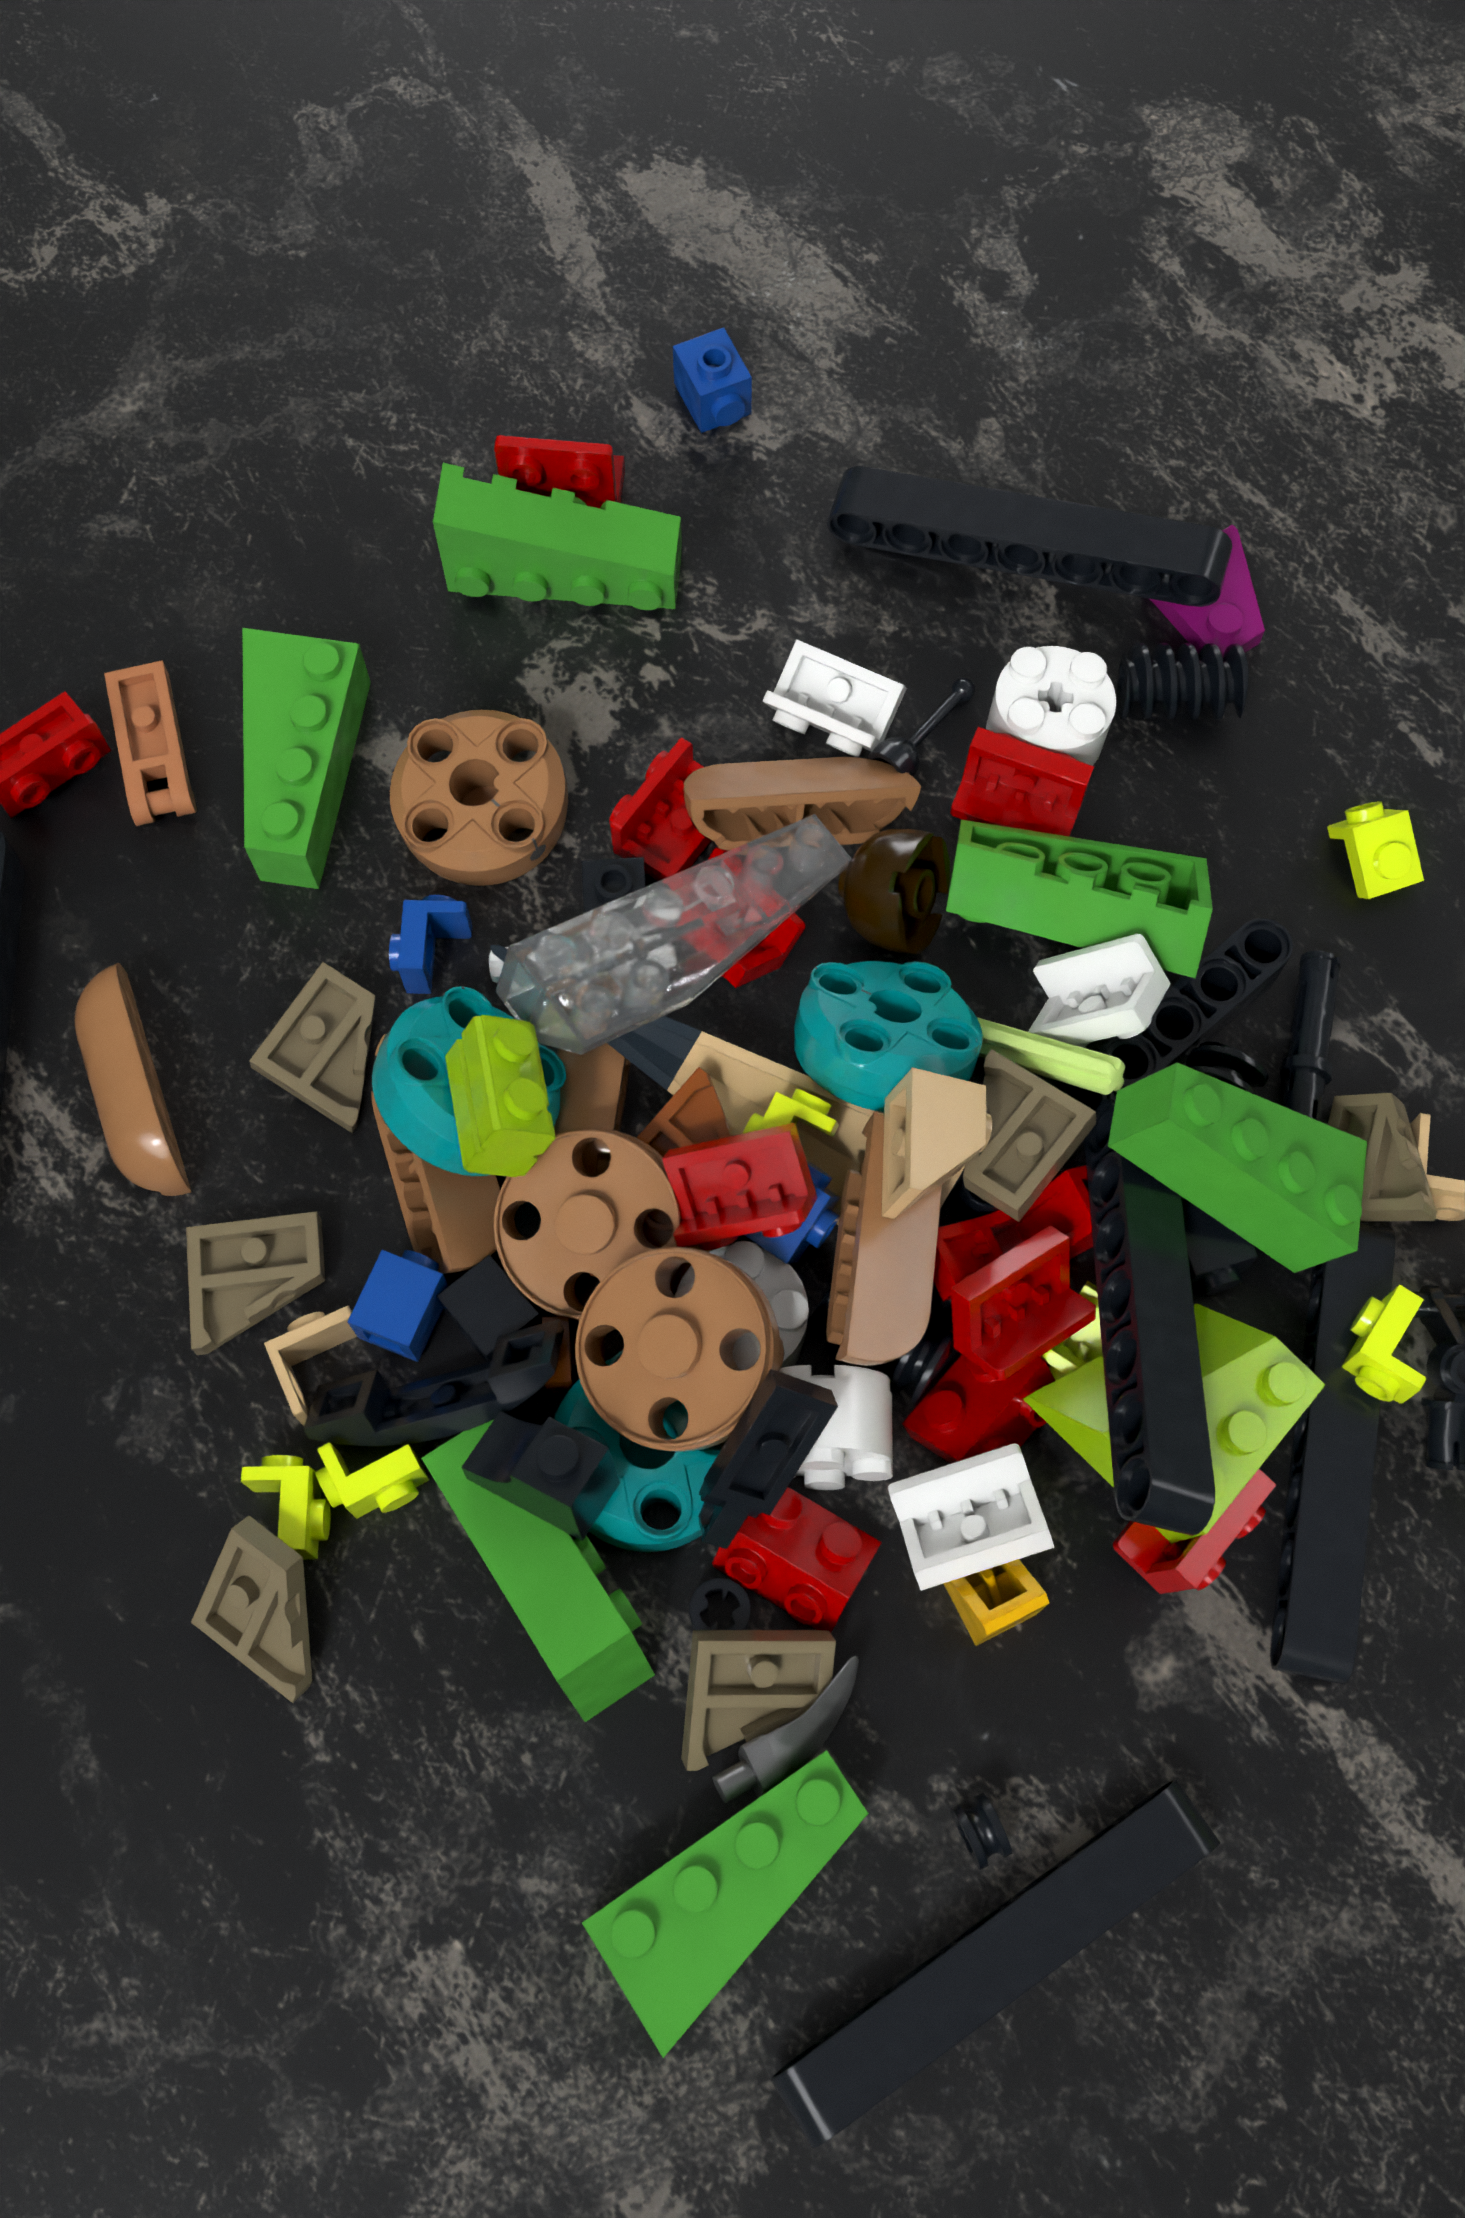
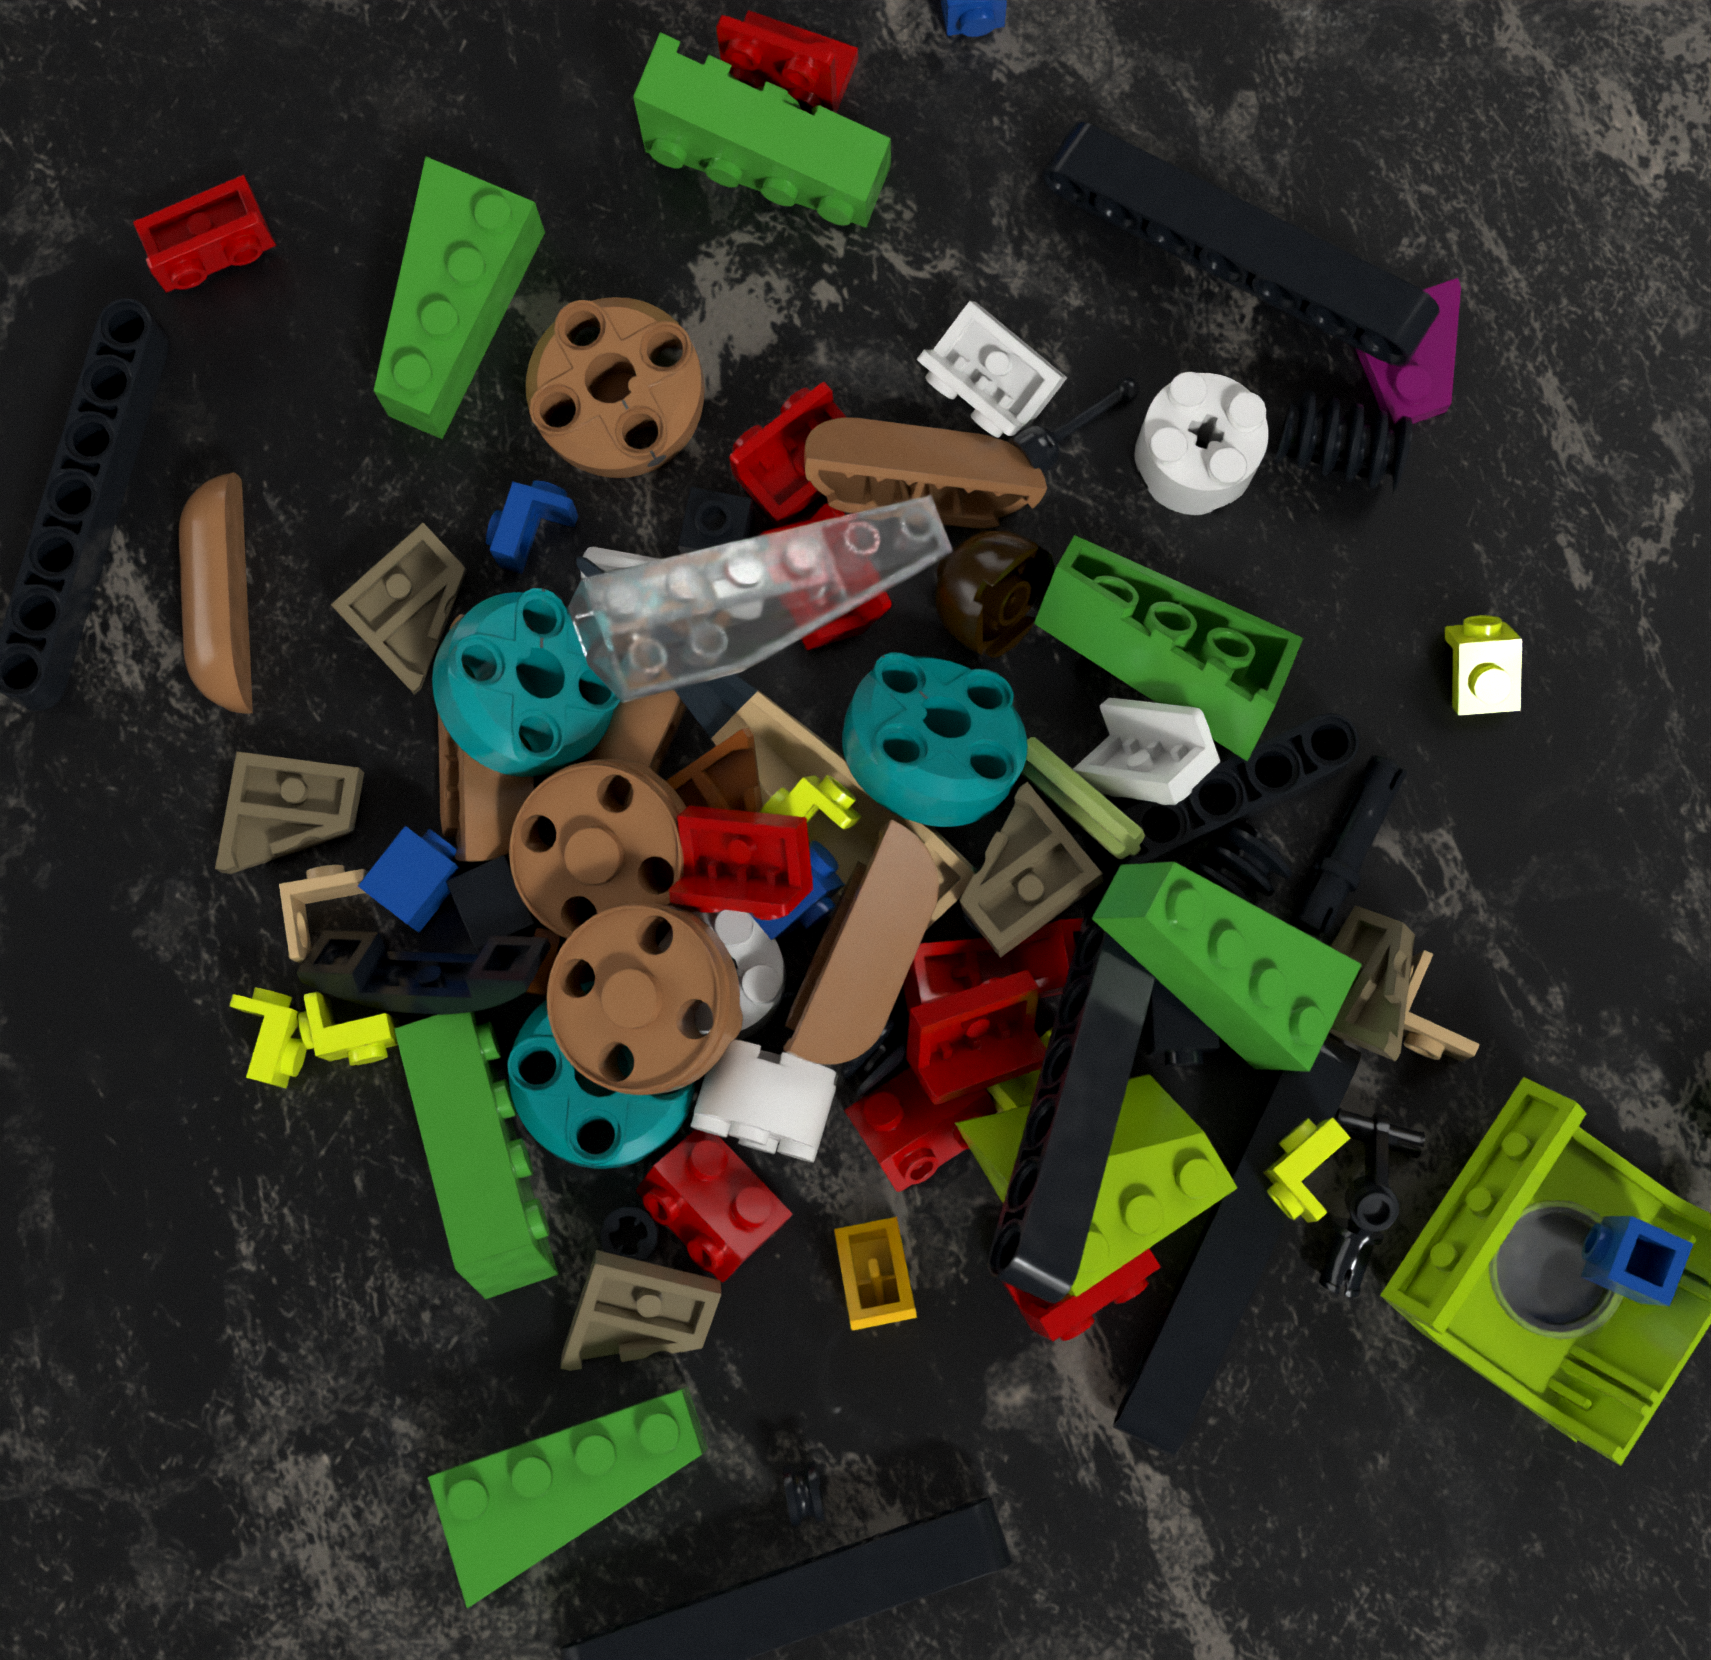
camera: 20 degrees right, 10 degrees up
(149, 741) = (313, 246): nougat plate -> none
(260, 1608) = (220, 1124): dark tan wing -> none
(499, 1096) = (541, 717): lime brick -> none
(545, 1471) = (495, 1077): black arch -> none
(762, 1454) = (693, 1116): black hinge -> none
(784, 1751) = (649, 1376): flat silver bar -> none
(929, 1135) = (934, 858): tan slope -> none
(970, 1516) = (874, 1217): white bracket -> none
(1020, 785) = (1145, 515): red bracket -> none

